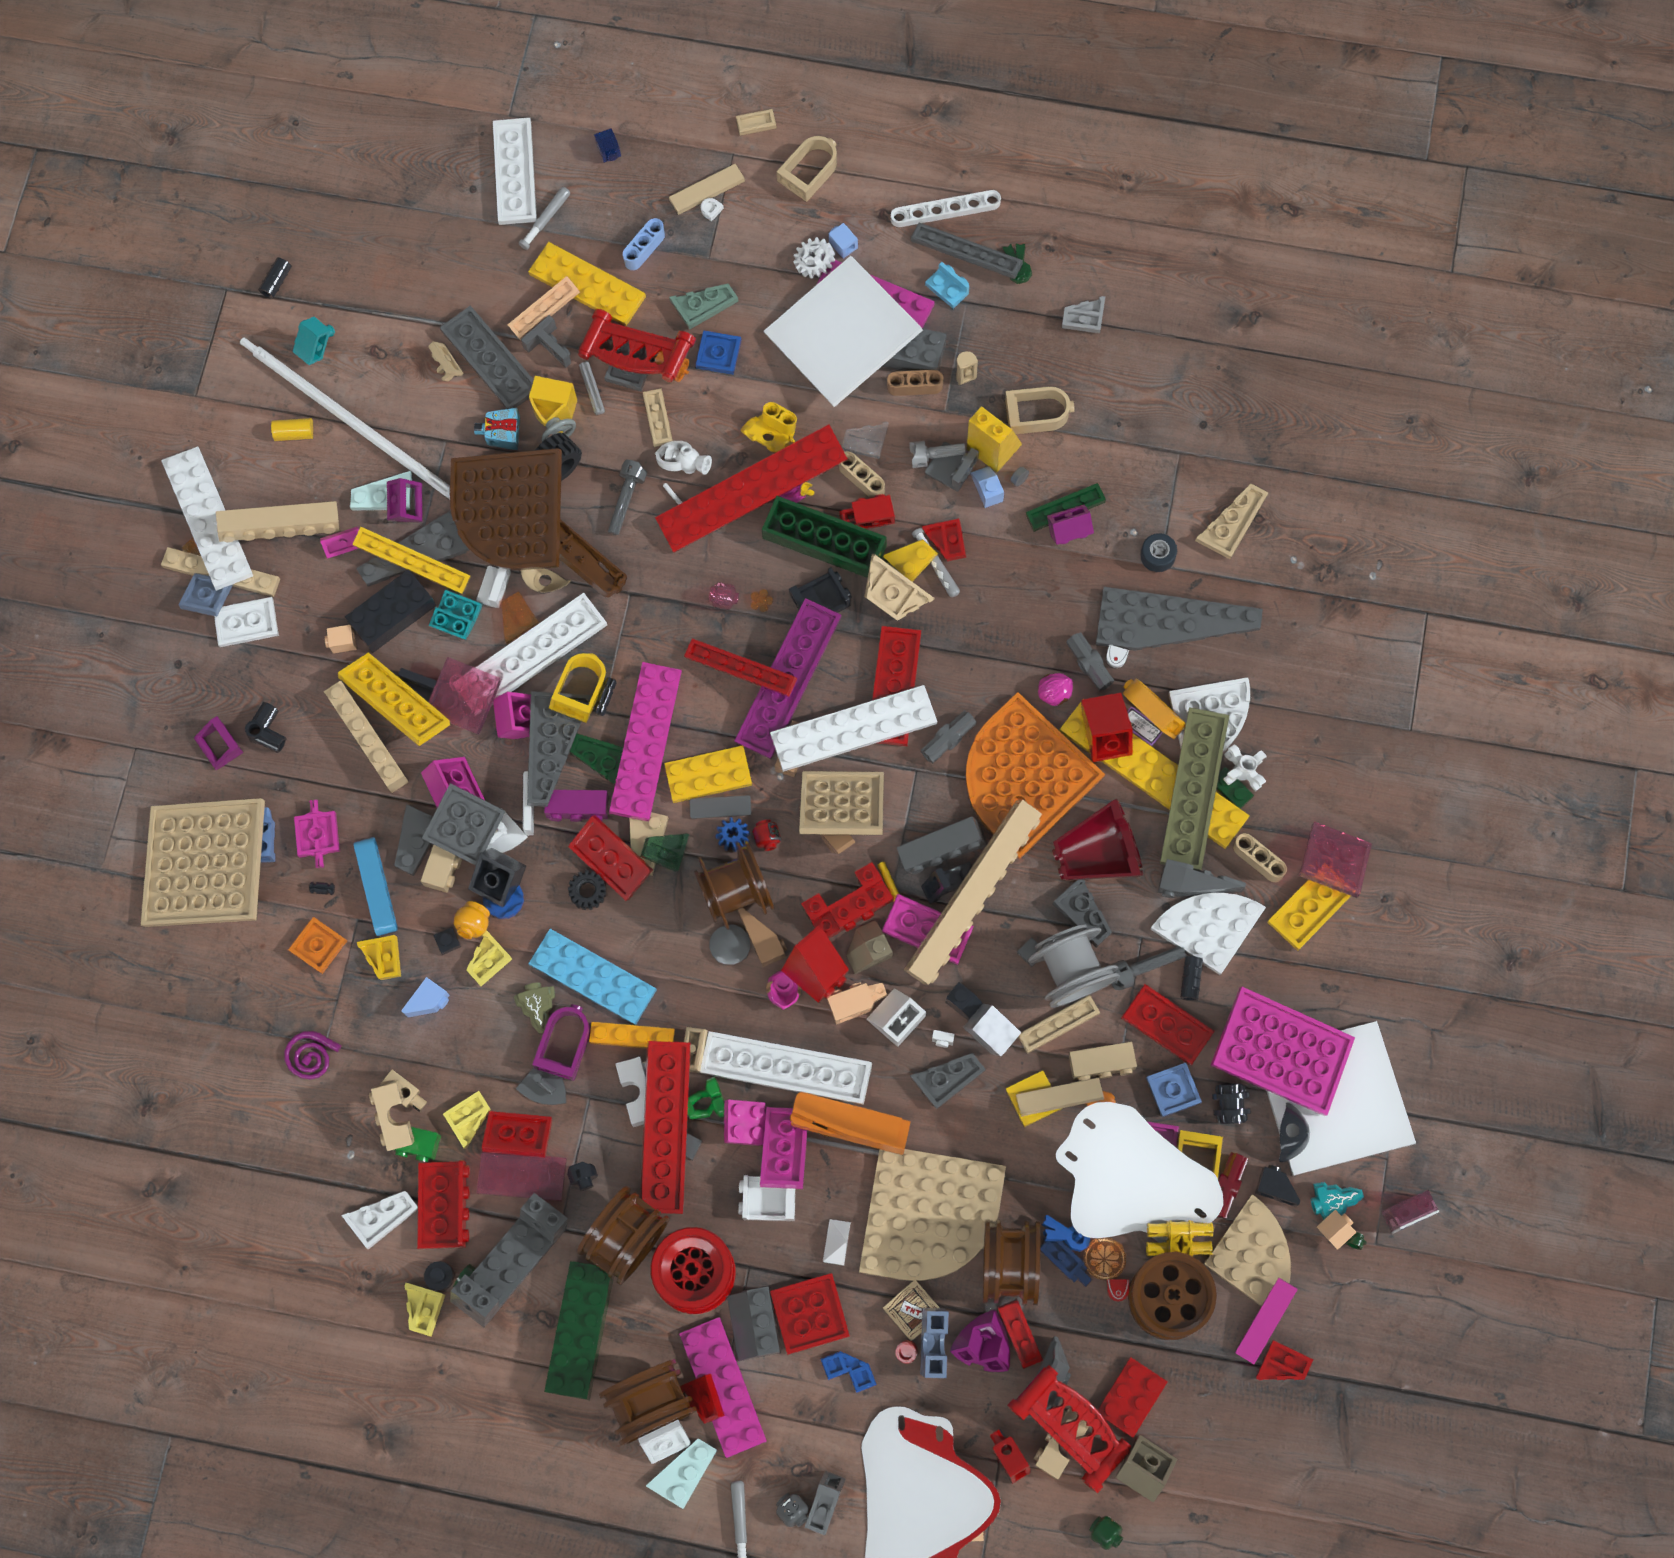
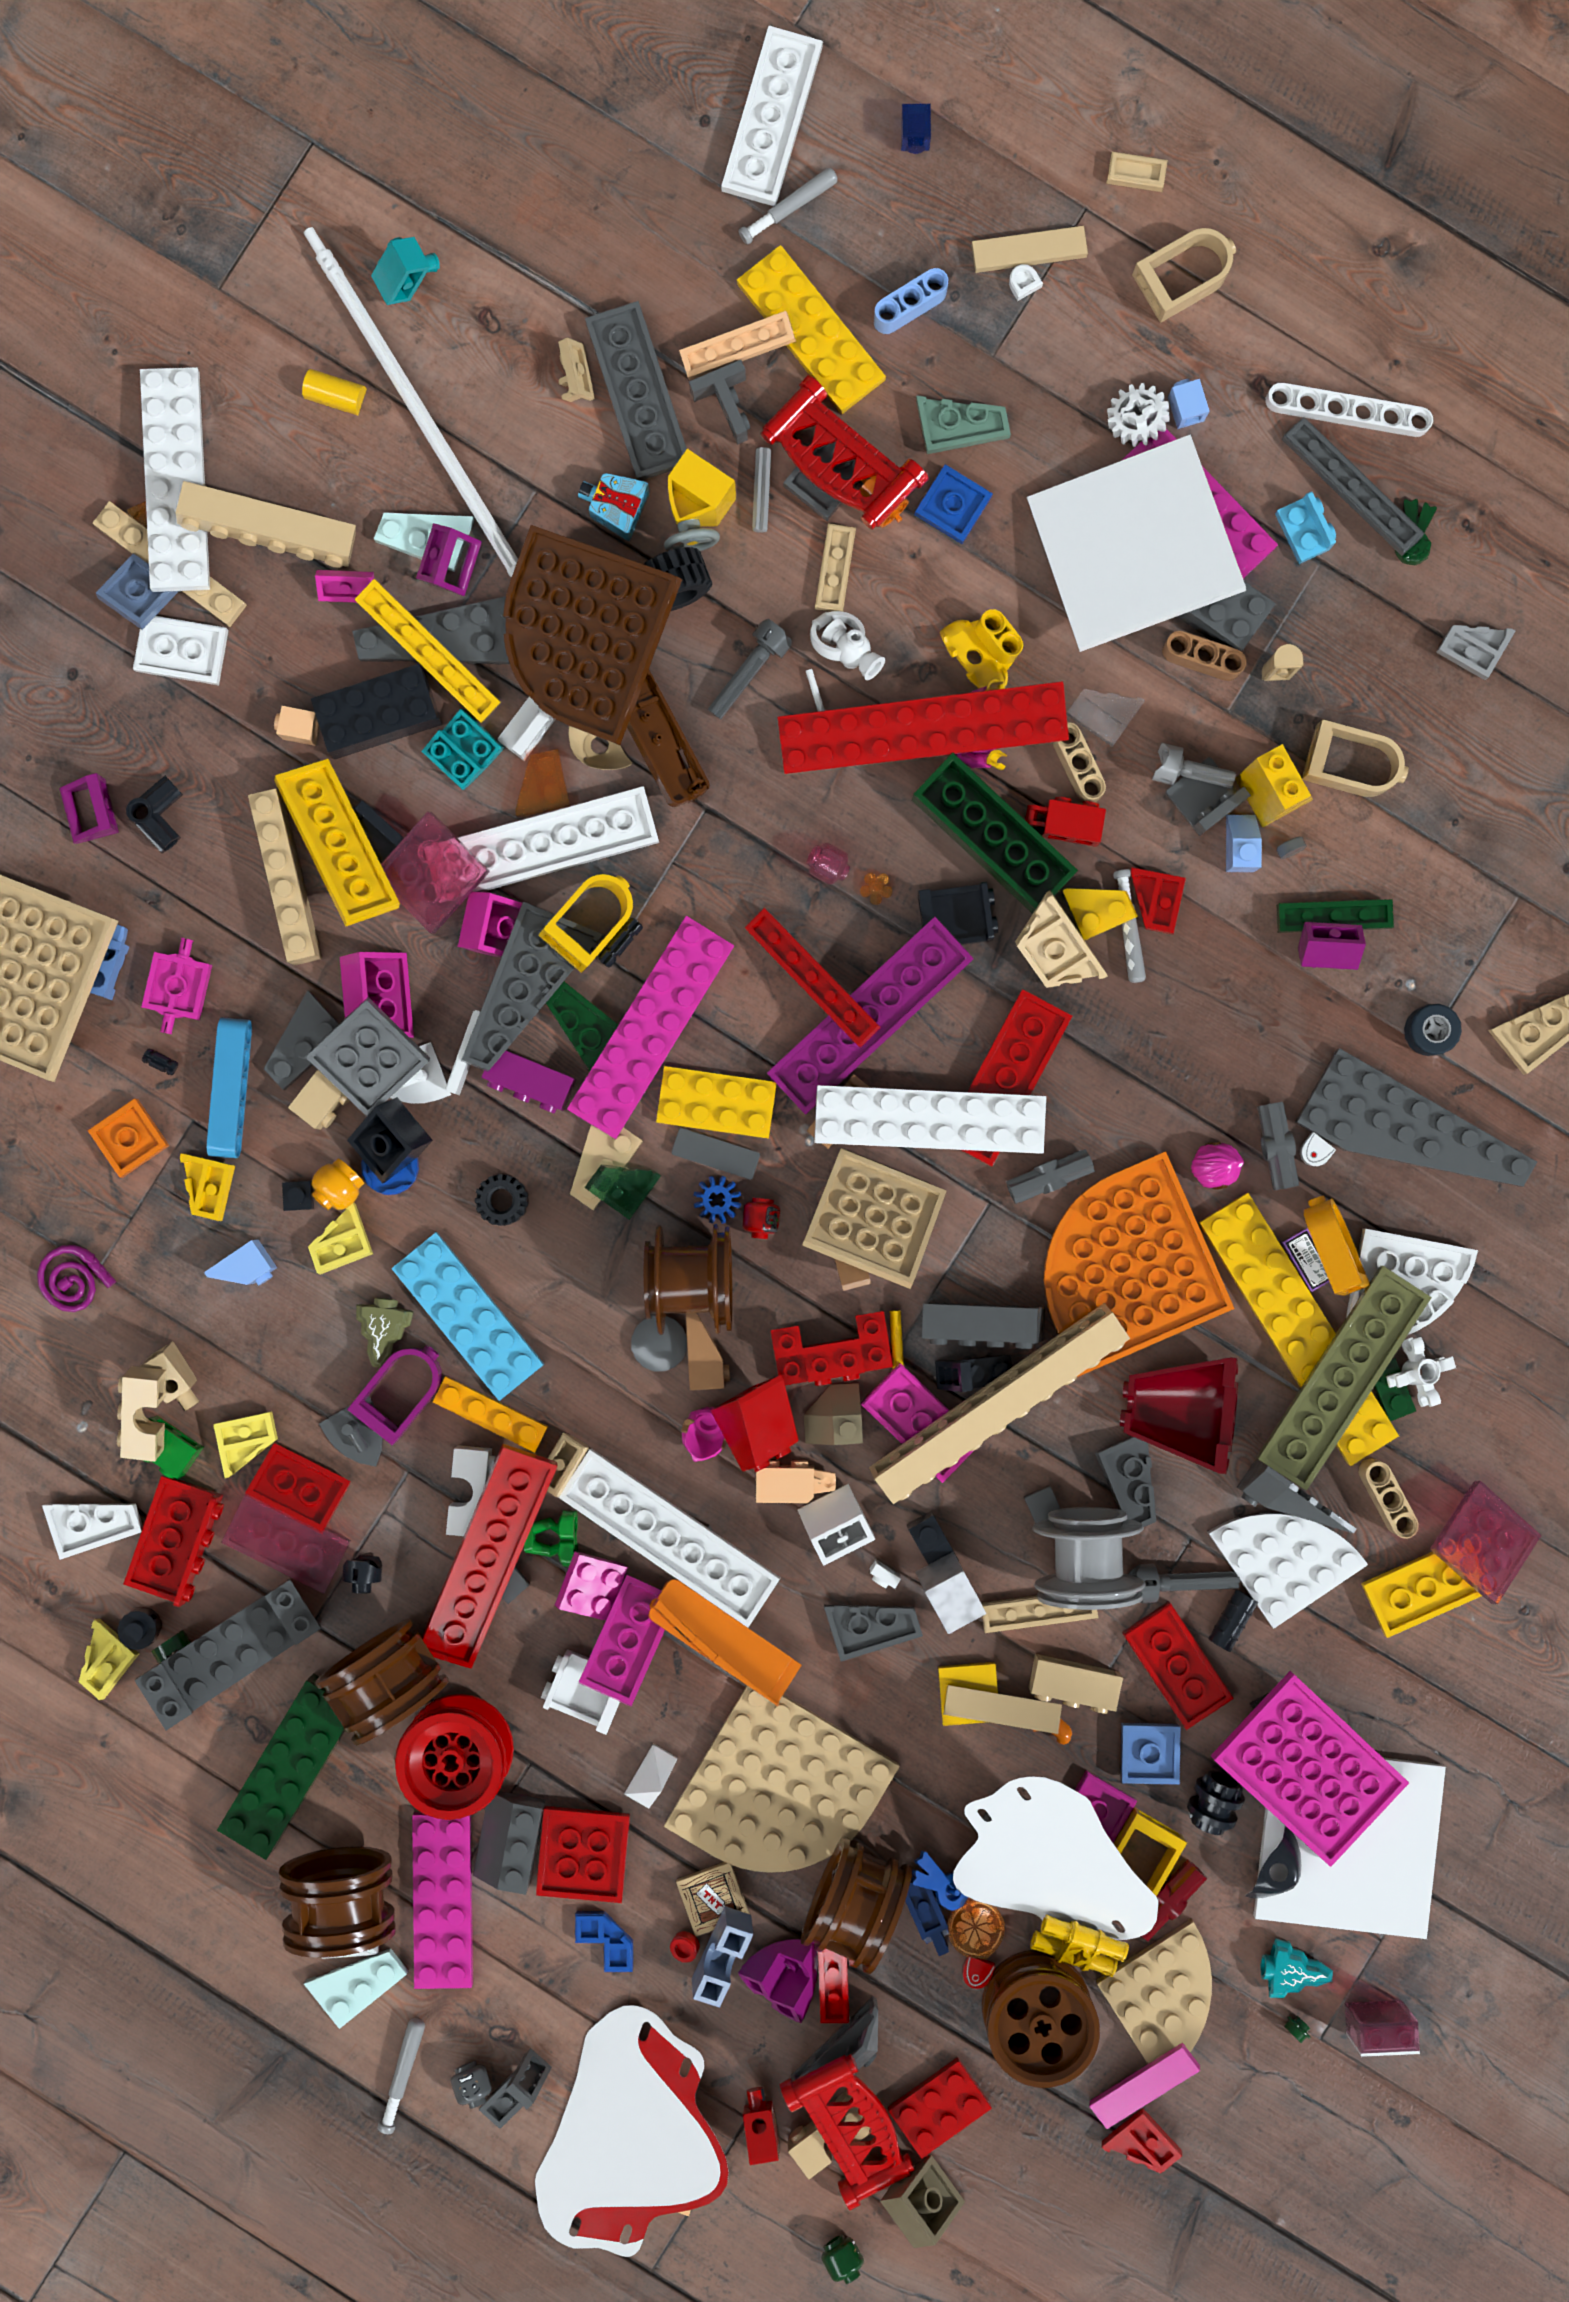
camera: 20 degrees right, 15 degrees up
(274, 278) = (383, 152): black axle -> none
(610, 857) = (546, 1170): red plate -> none
(704, 1398) = (412, 1912): red wing -> none
(1107, 727) = (1265, 1249): red slope -> none
(1276, 1186) = (1227, 1924): black slope -> none
(1337, 1228) = (1281, 2010): light nougat brick -> none

